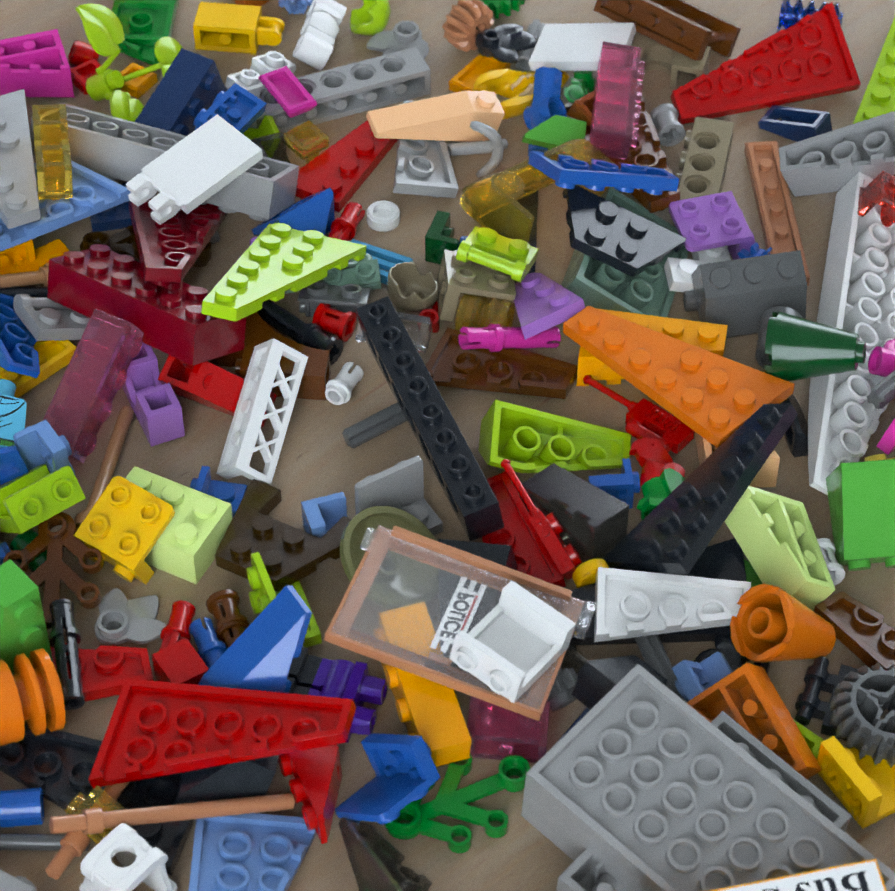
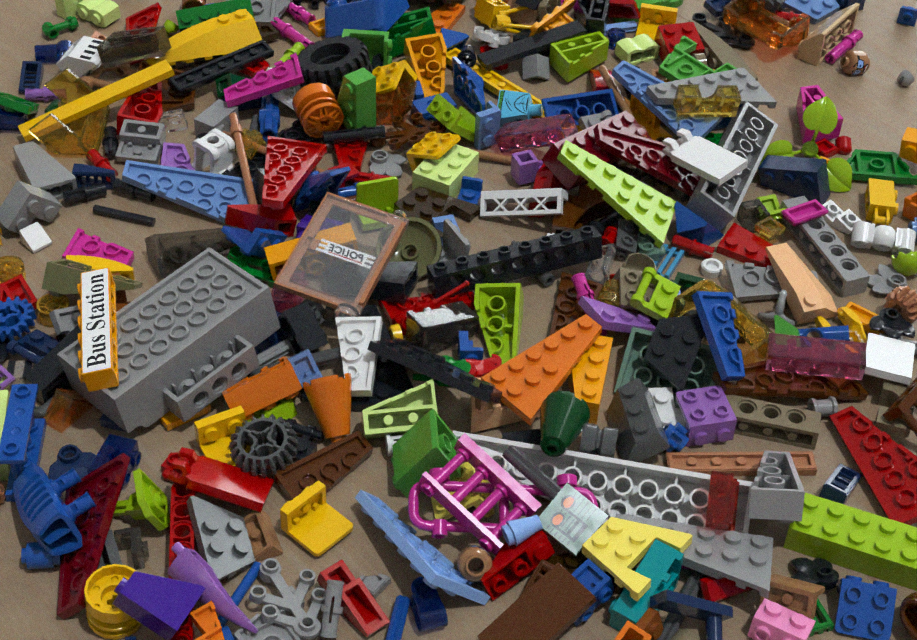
camera: 90 degrees right, 5 degrees down
(235, 106) = (770, 183): blue bracket -> none
(513, 642) = (315, 266): white panel -> none

